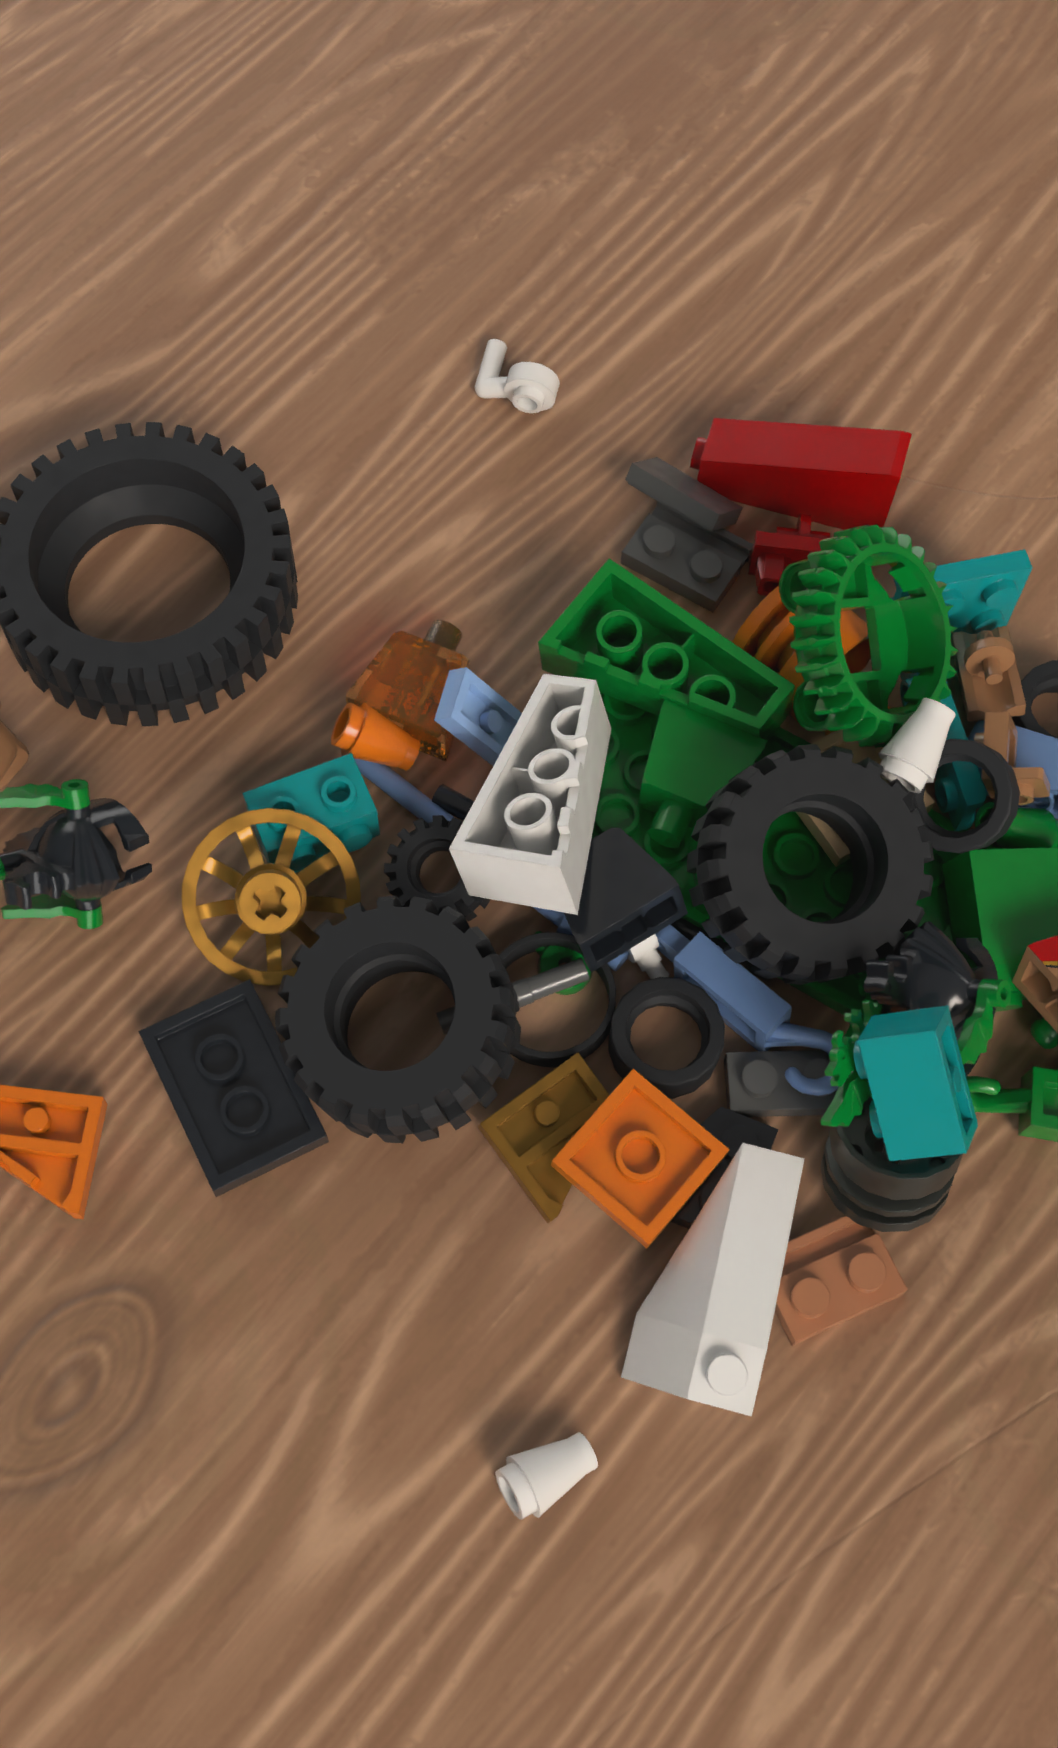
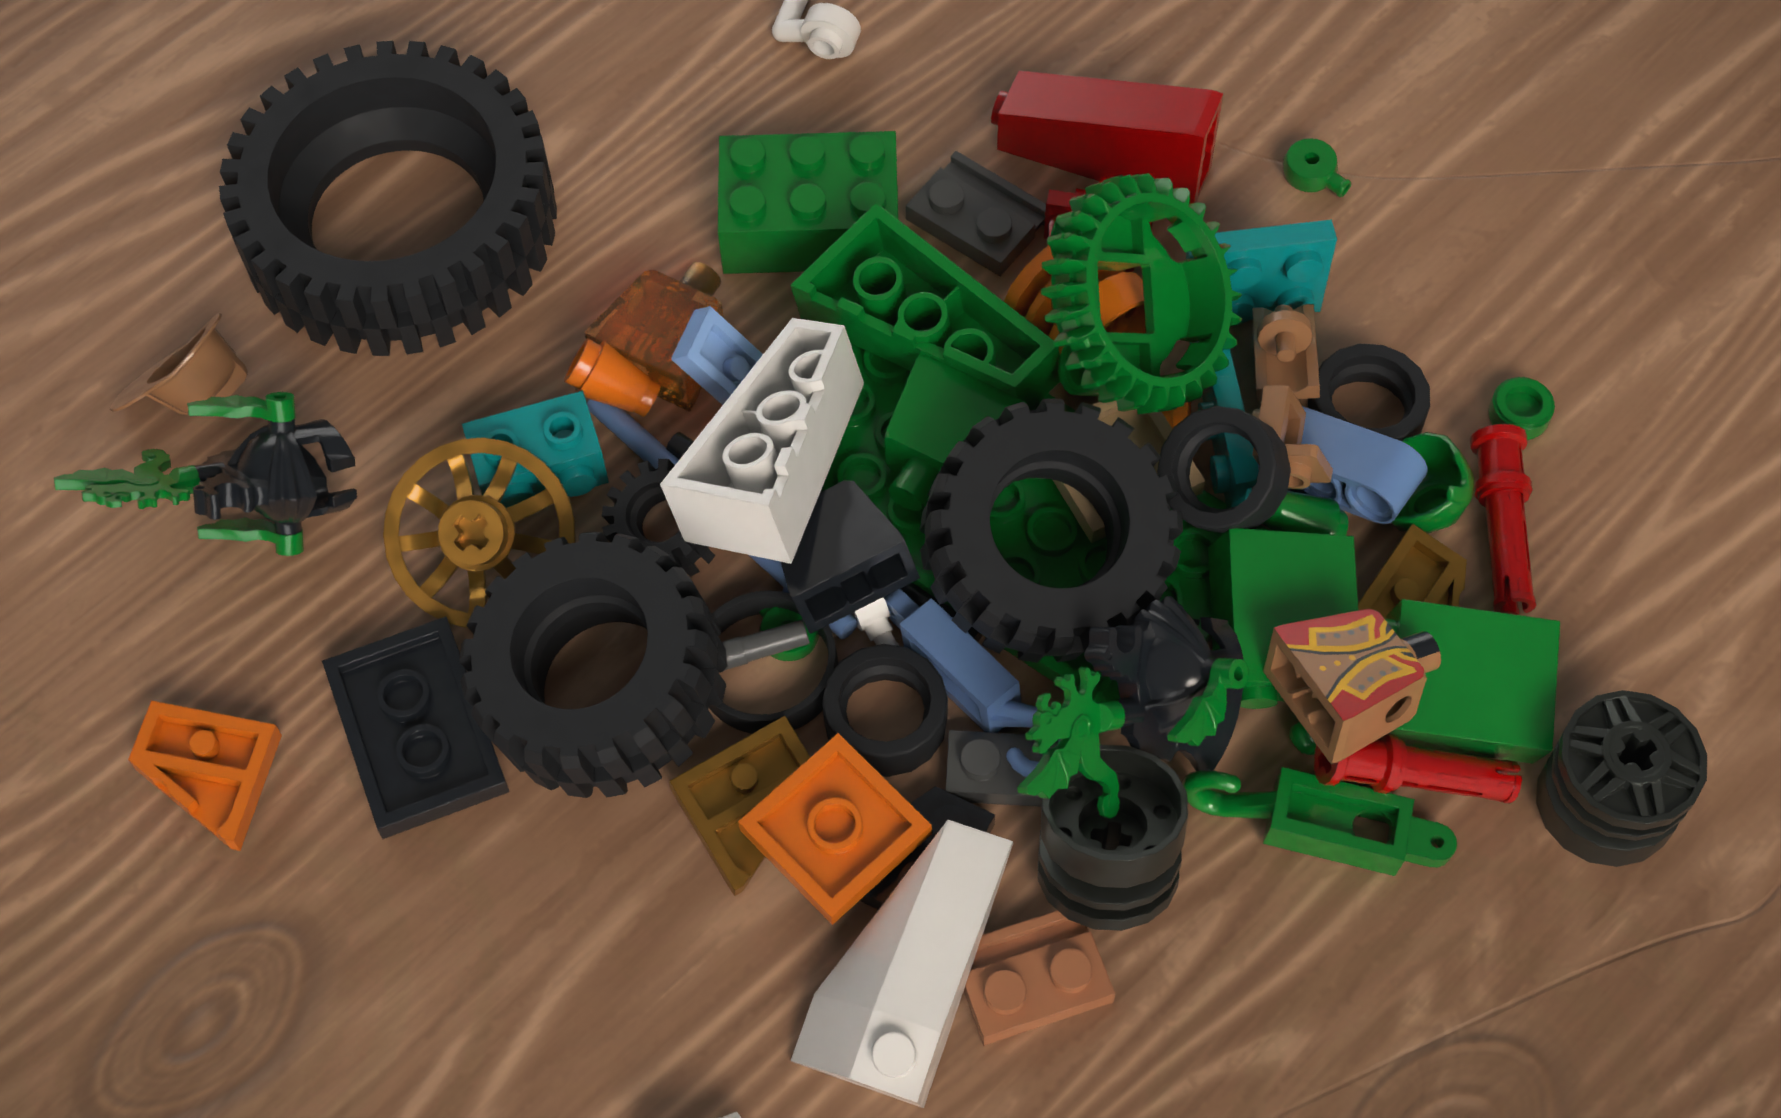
camera: 10 degrees right, 5 degrees down
(528, 550) = (798, 194): none -> green brick
(683, 494) = (979, 149): dark grey tile -> none
(916, 1084) = (1126, 756): teal brick -> none
(918, 746) = (1175, 410): white cone -> none
(983, 491) = (1313, 166): none -> green piece

